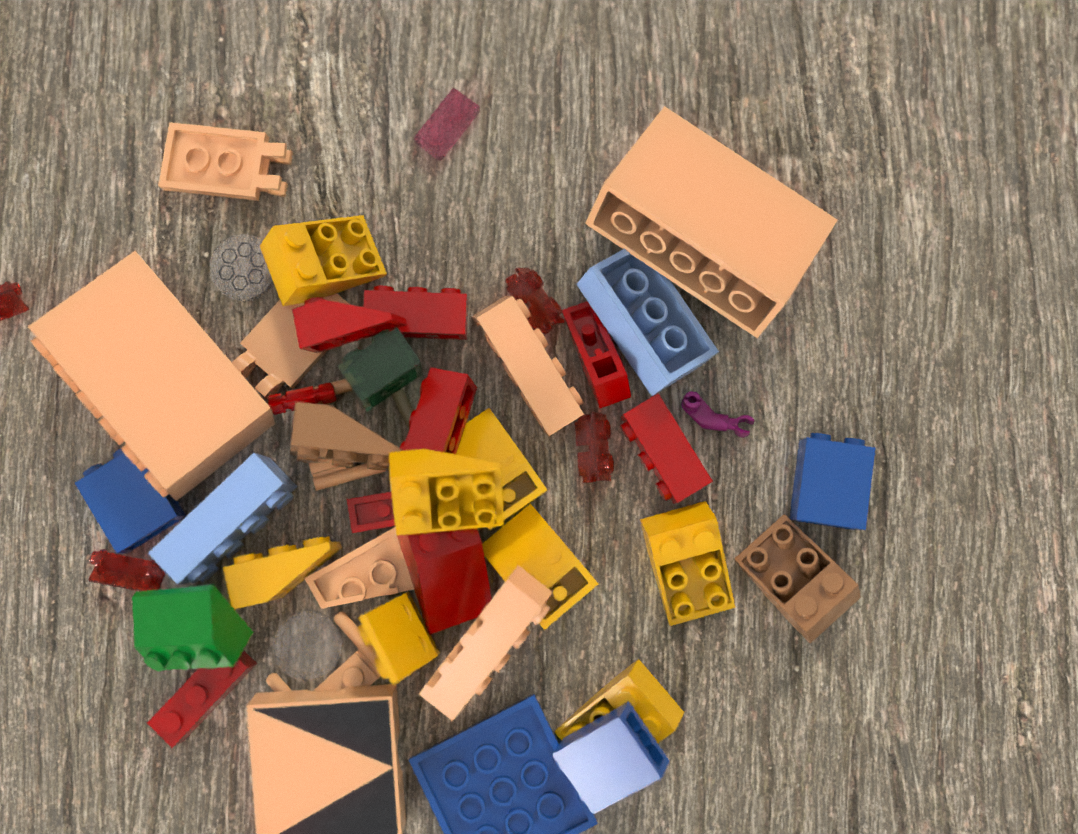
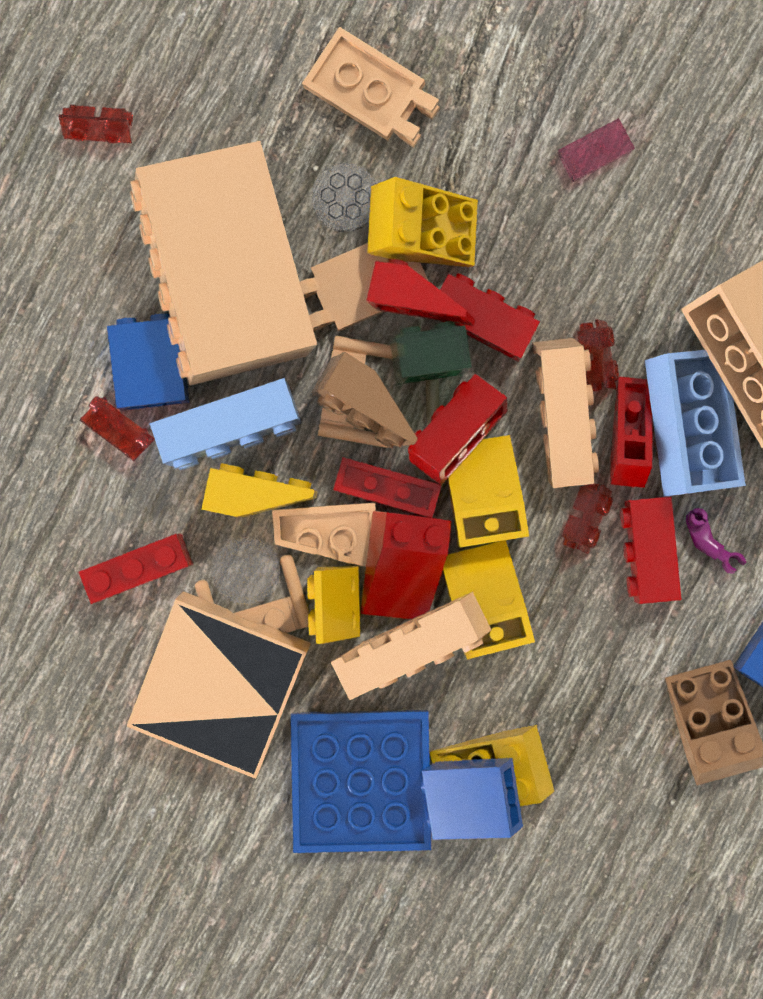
camera: 30 degrees right, 5 degrees up
(187, 628) = (153, 506): green slope -> none
(324, 393) = (339, 344): red axle -> none
(444, 492) = (438, 495): yellow slope -> none
(688, 562) = (623, 661): yellow slope -> none

